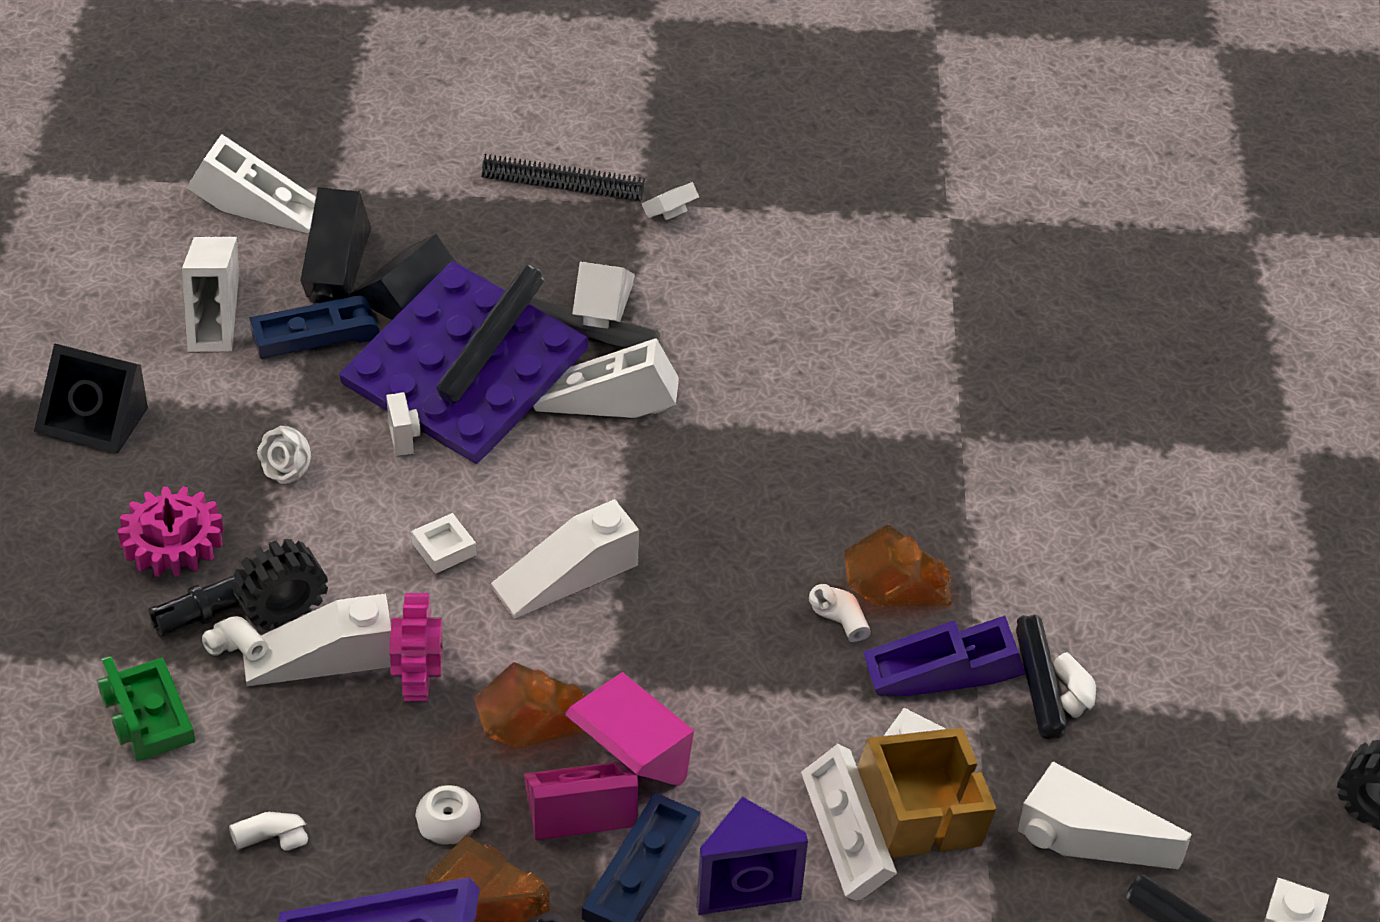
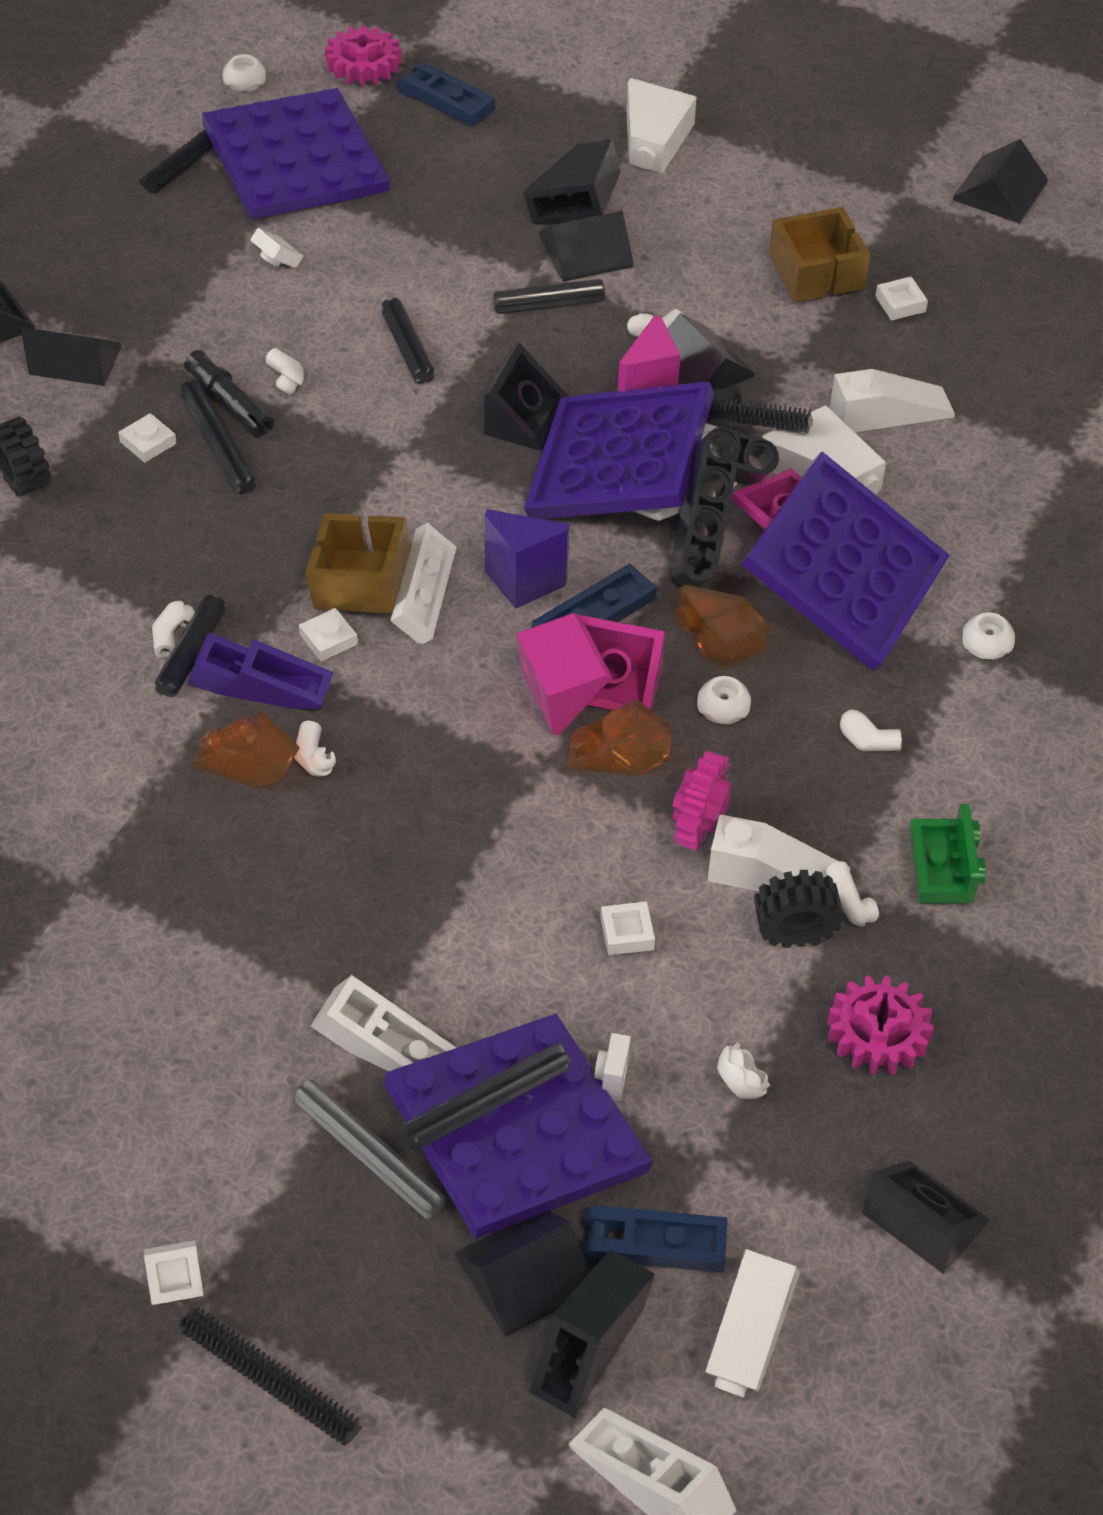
camera: 155 degrees left, 5 degrees up
(194, 606) = (858, 946): black pin -> none
(571, 559) = (520, 865): white slope -> none
(601, 293) = (330, 1137): white slope -> none
(1093, 823) = (246, 521): white slope -> none

